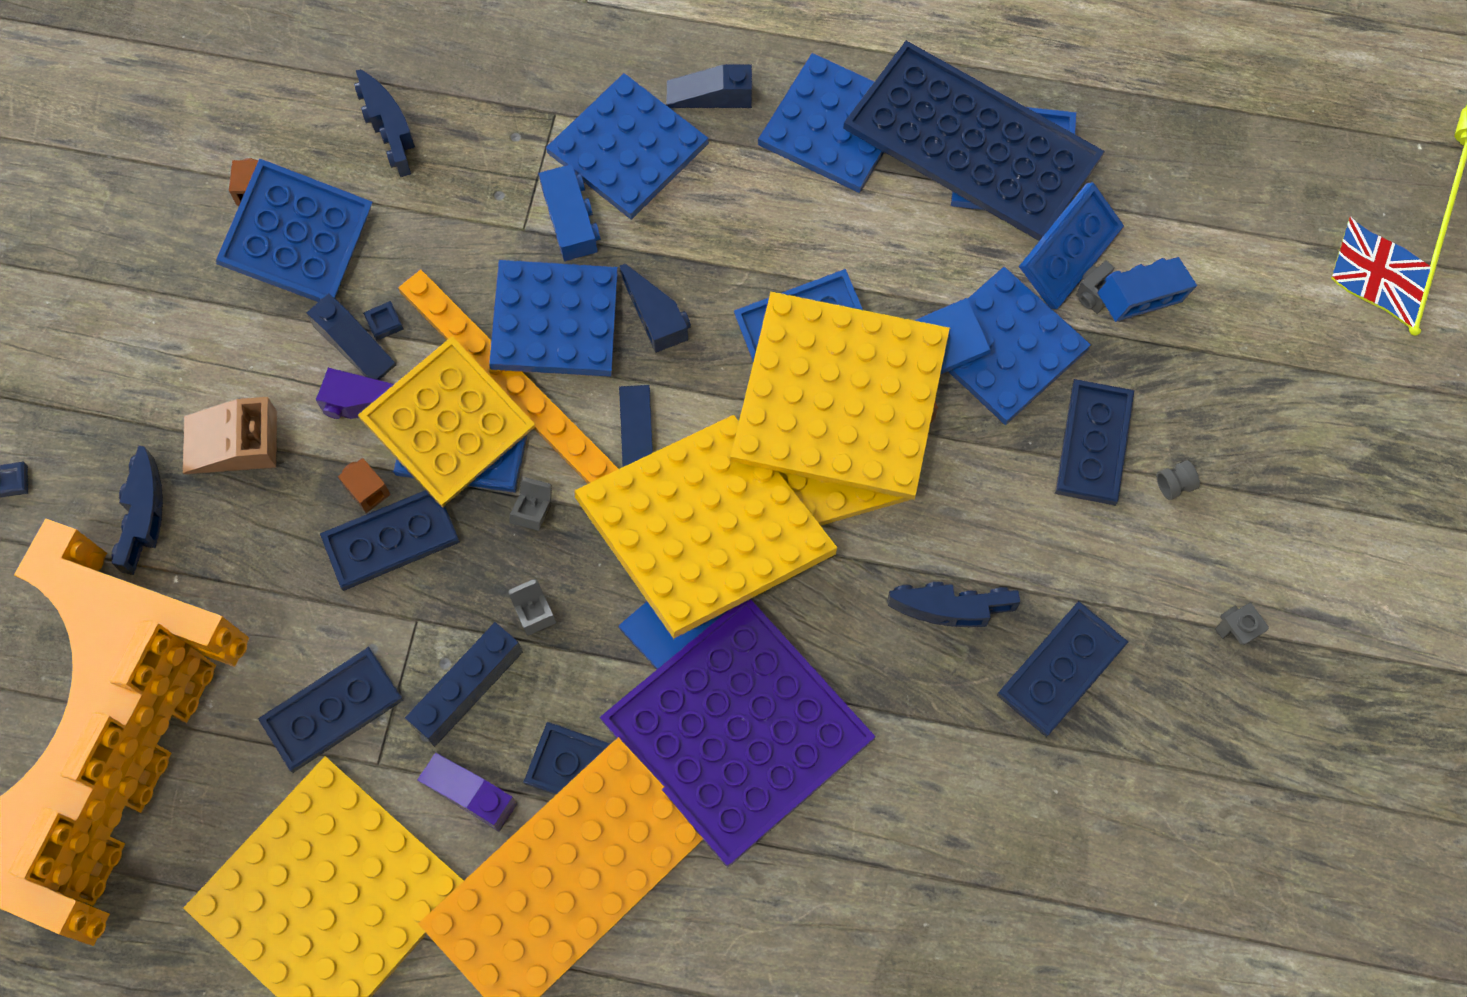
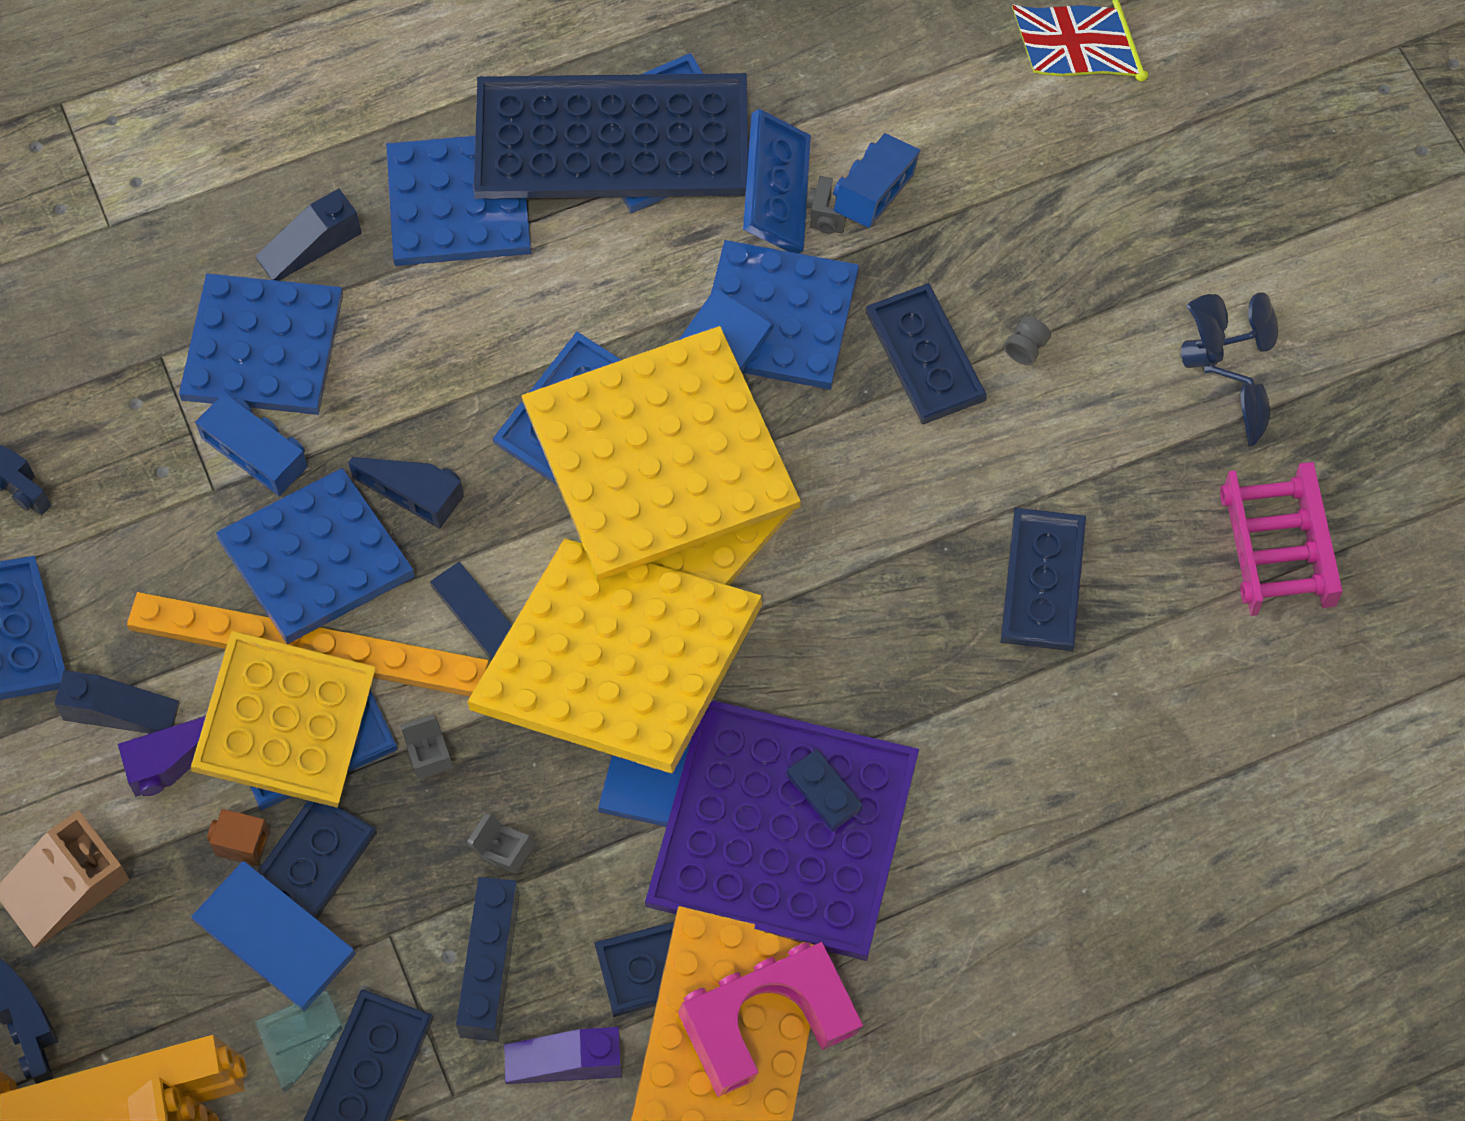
camera: 35 degrees left, 5 degrees down
(303, 651) = (298, 1037): none -> clear light blue wing
(335, 570) = (273, 935): none -> blue tile
(383, 321) = (134, 666): dark blue tile -> none
(667, 850) = (803, 977): none -> dark pink arch
(783, 721) = (824, 790): none -> dark blue plate
(940, 606) = (893, 591): dark blue slope -> none
(1244, 624) = (1177, 431): dark grey bracket -> none
(1302, 756) = (1310, 517): none -> dark pink fence
(1327, 554) = (1212, 321): none -> dark blue plant

